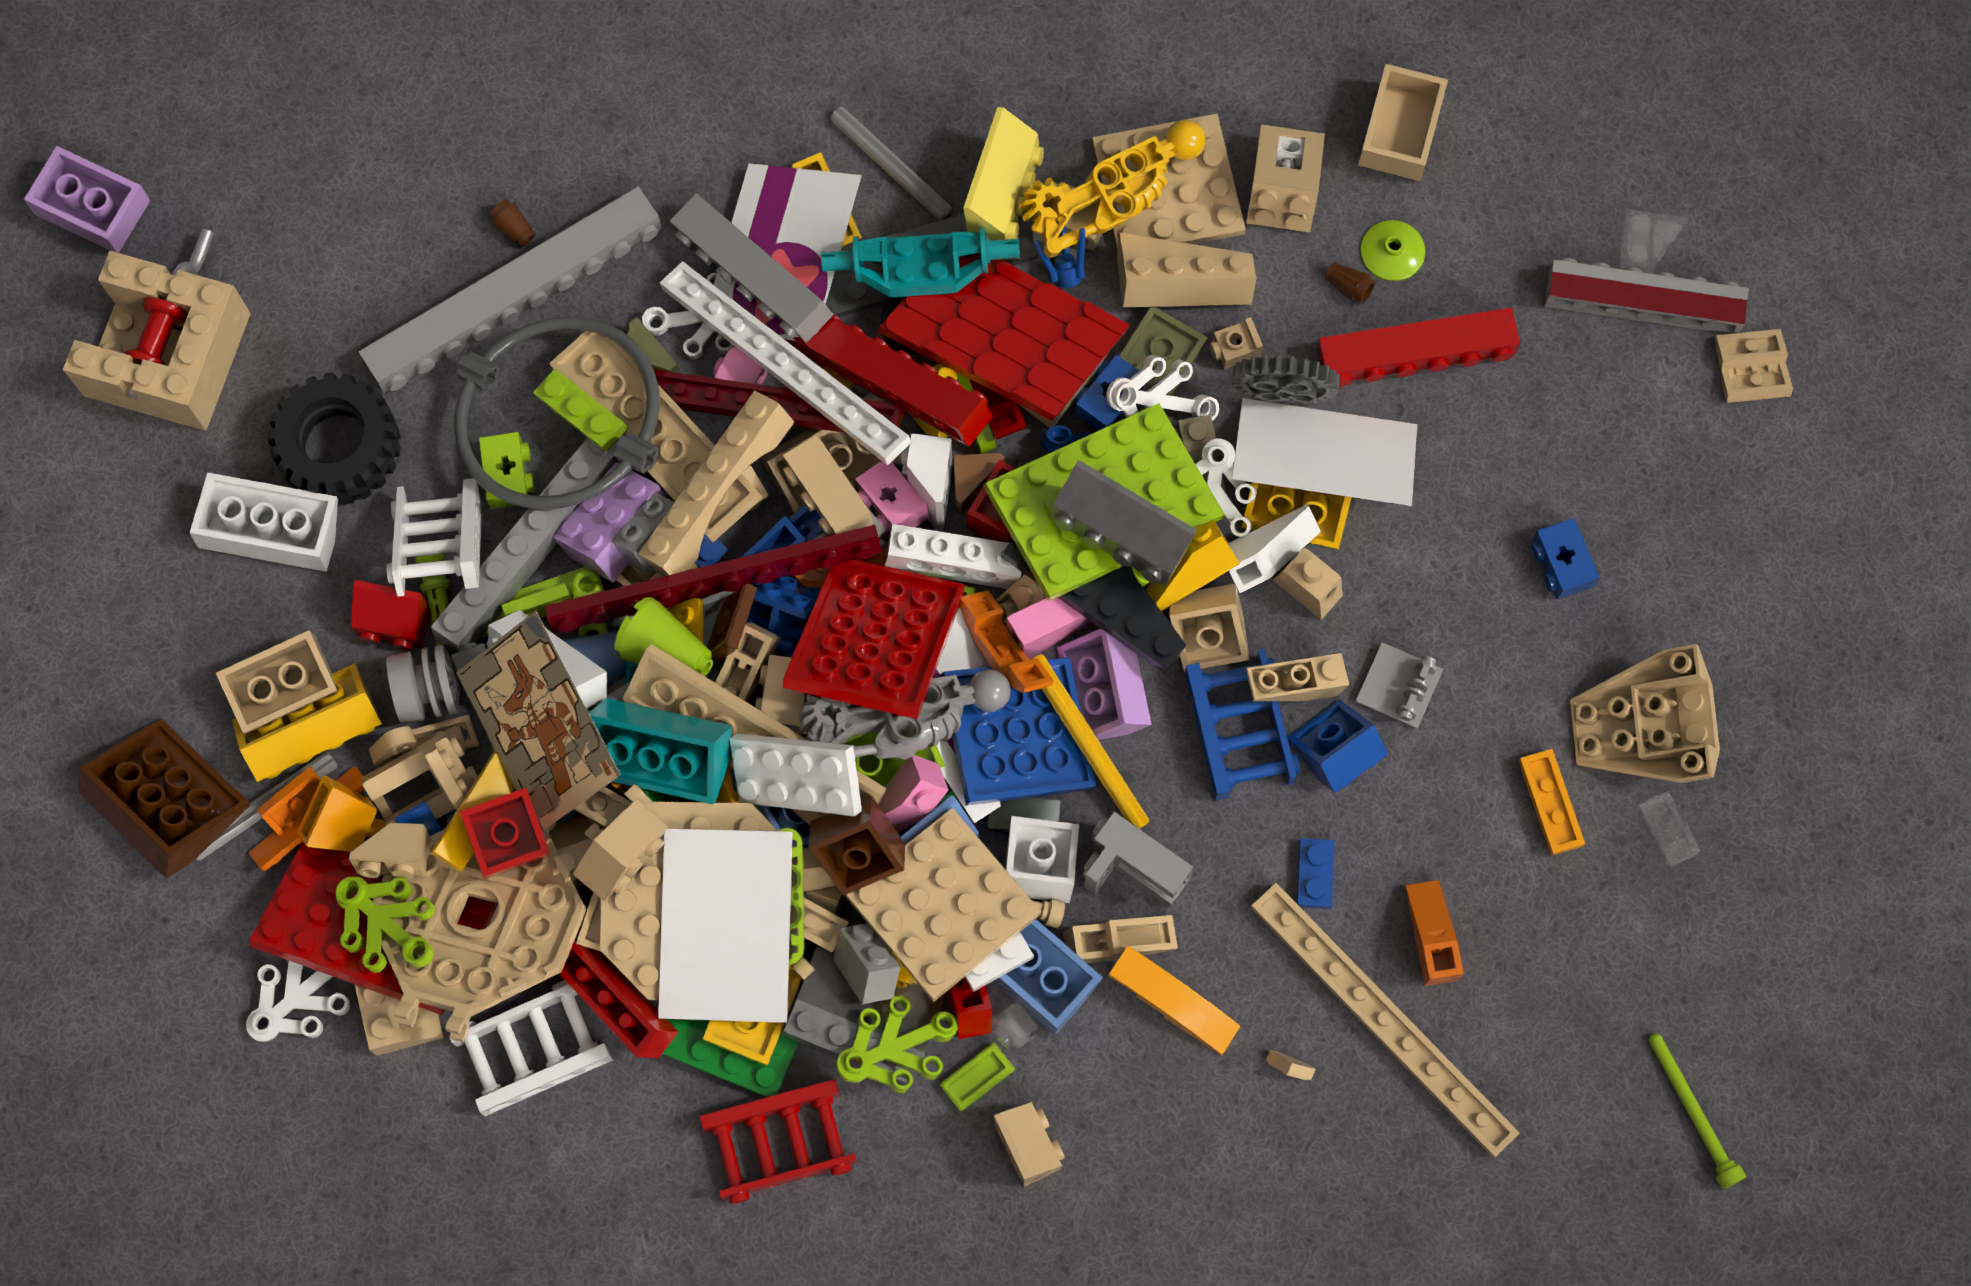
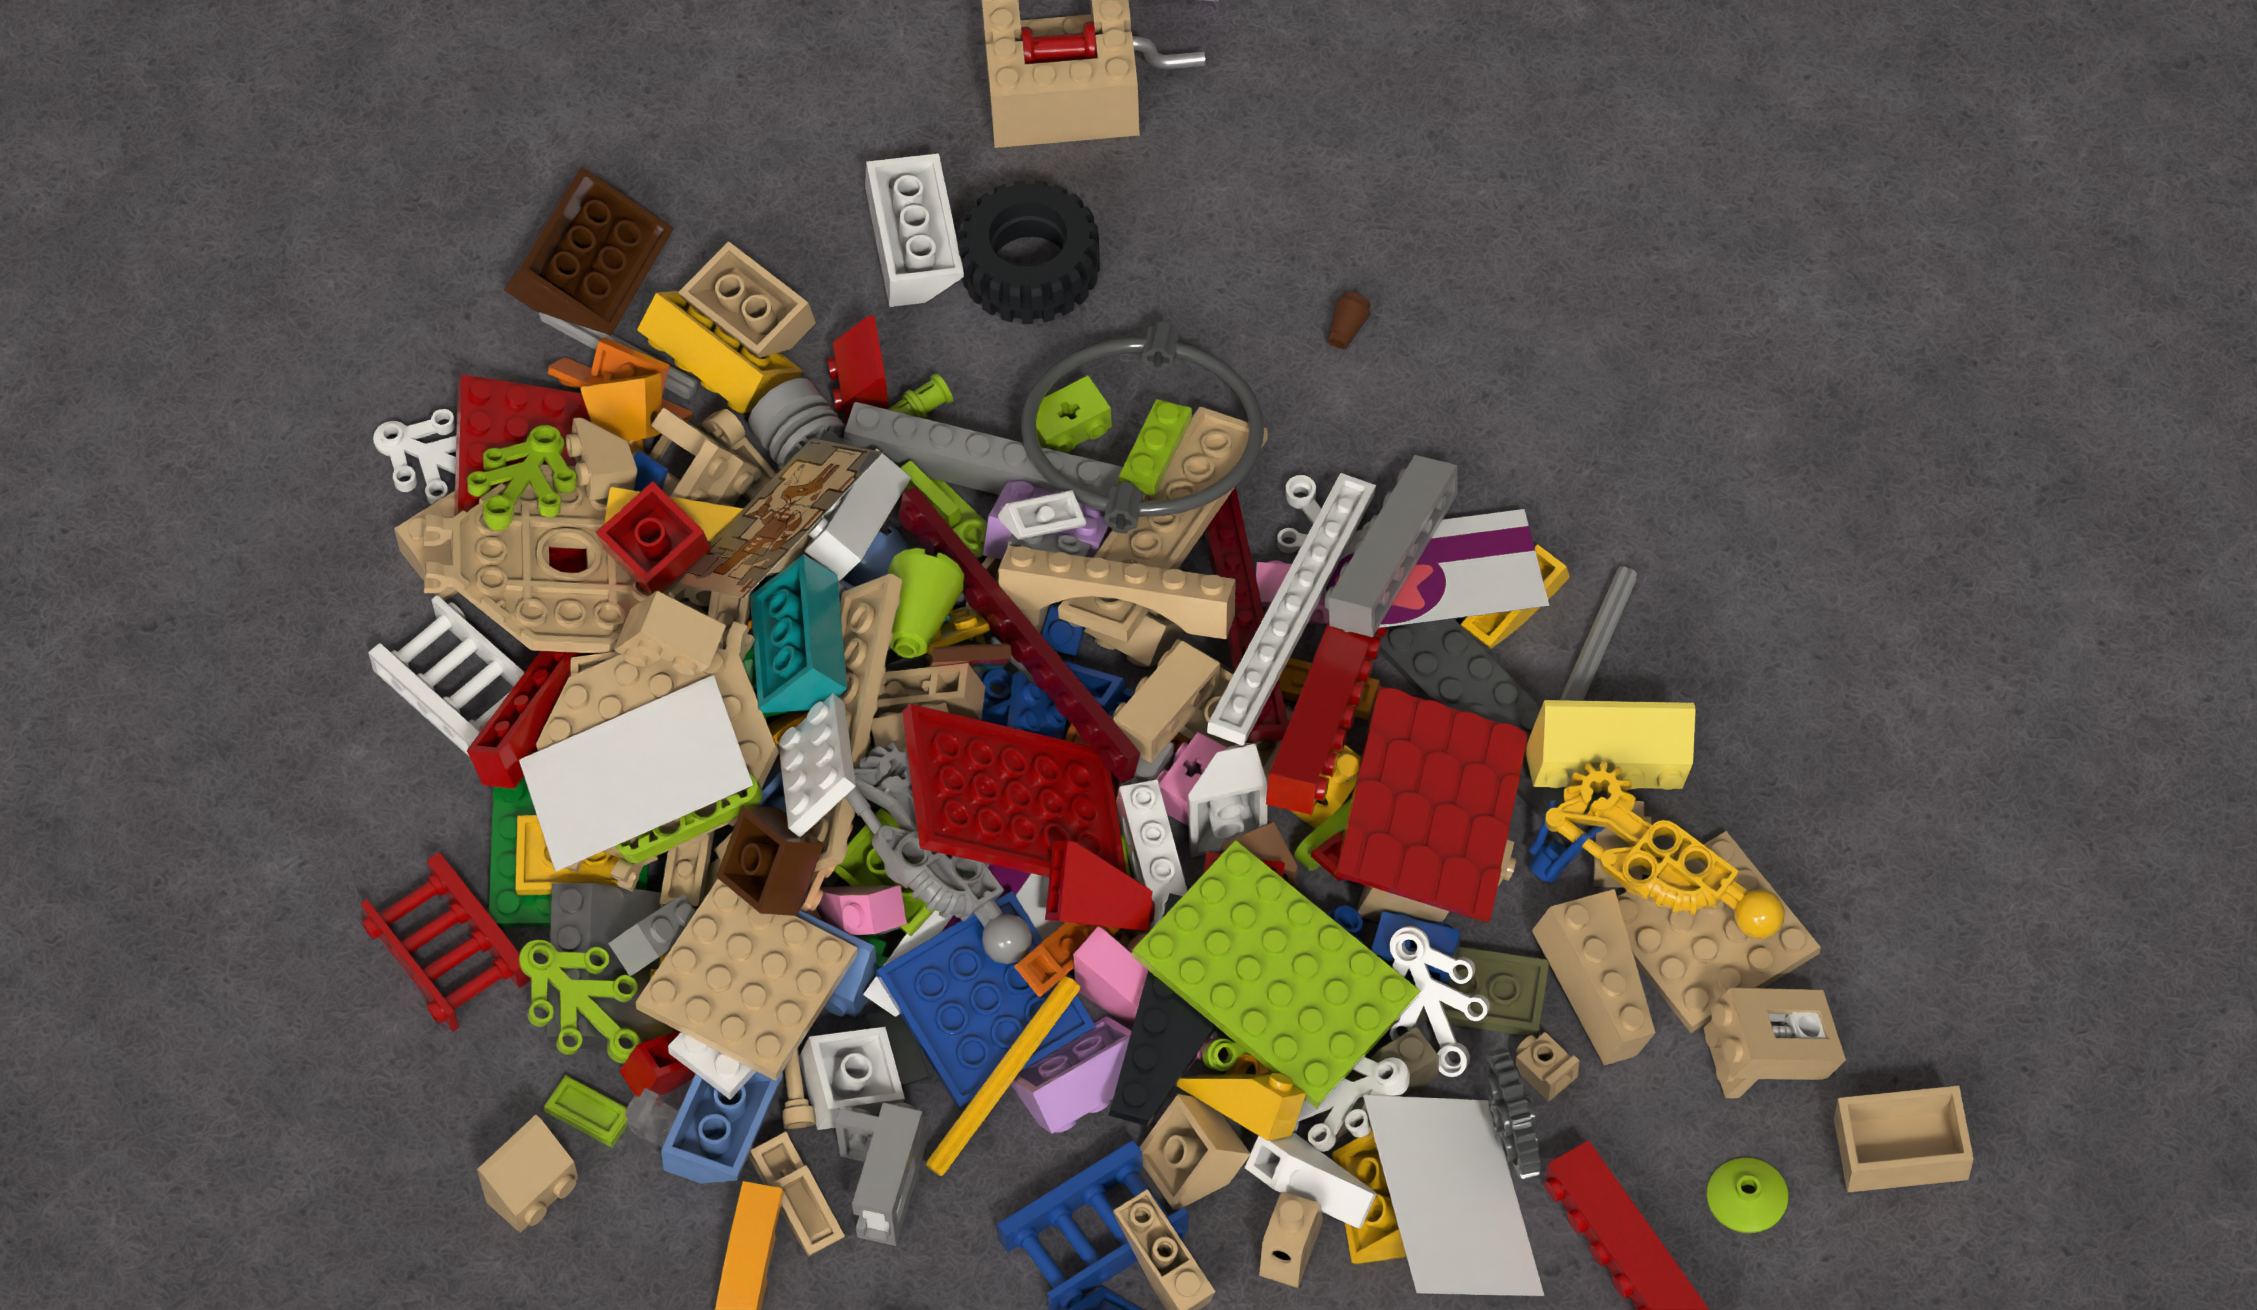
camera: 70 degrees right, 15 degrees down
(466, 544) = (949, 399): white fence -> none
(511, 290) = (1273, 348): light grey brick -> none
(620, 517) = (1042, 515): none -> white slope
(654, 351) = (1261, 494): olive slope -> none
(920, 262) = (1472, 694): teal plate -> none
(981, 610) = (1094, 892): none -> red slope
(1121, 524) = (1237, 980): flat silver slope -> none
(1351, 282) = (1681, 1160): reddish brown cone -> none

